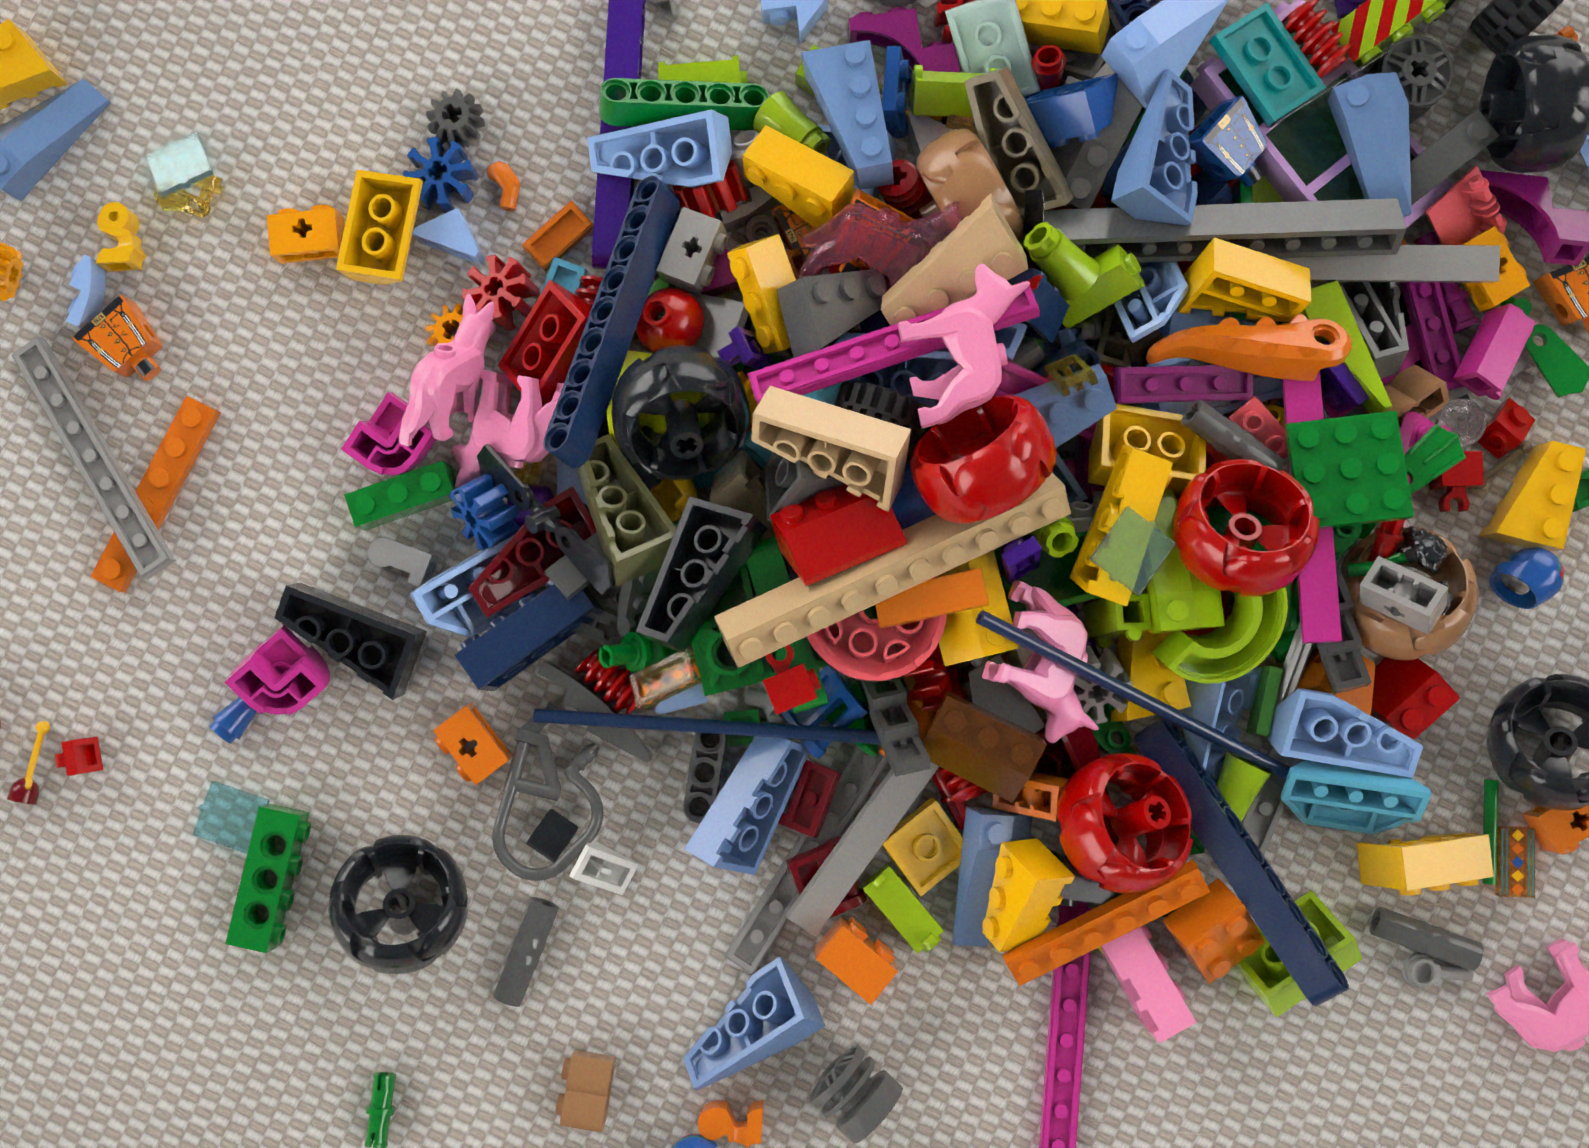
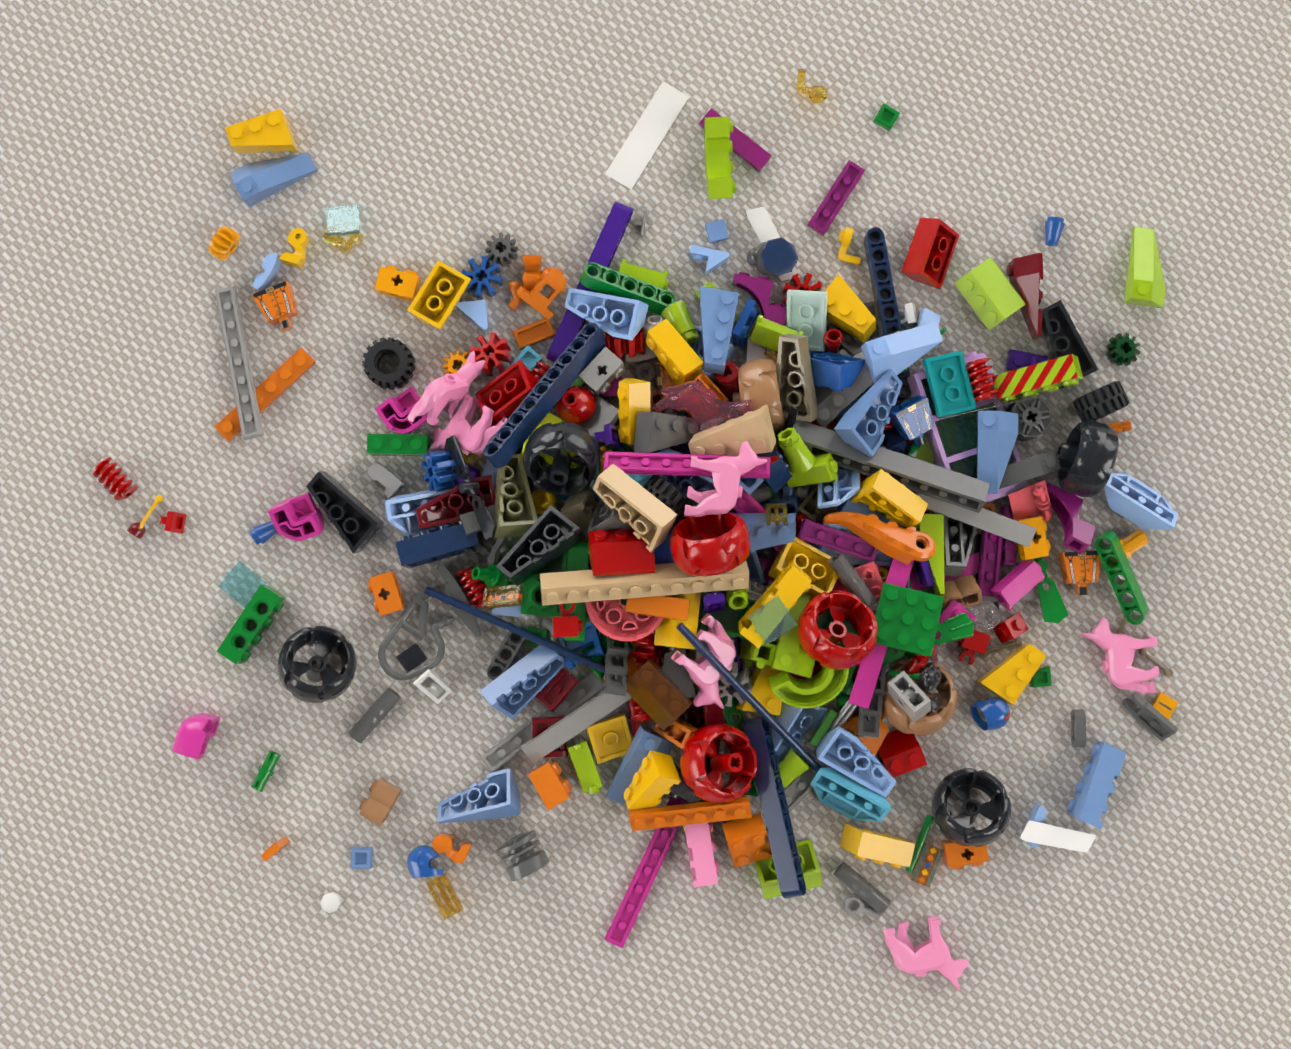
camera: 15 degrees right, 0 degrees up
(238, 1095) = (194, 735): none -> dark pink brick
(320, 349) = (379, 350): none -> black tyre
(519, 140) = (532, 270): none -> orange leg
(560, 130) = (555, 279): none -> orange tile

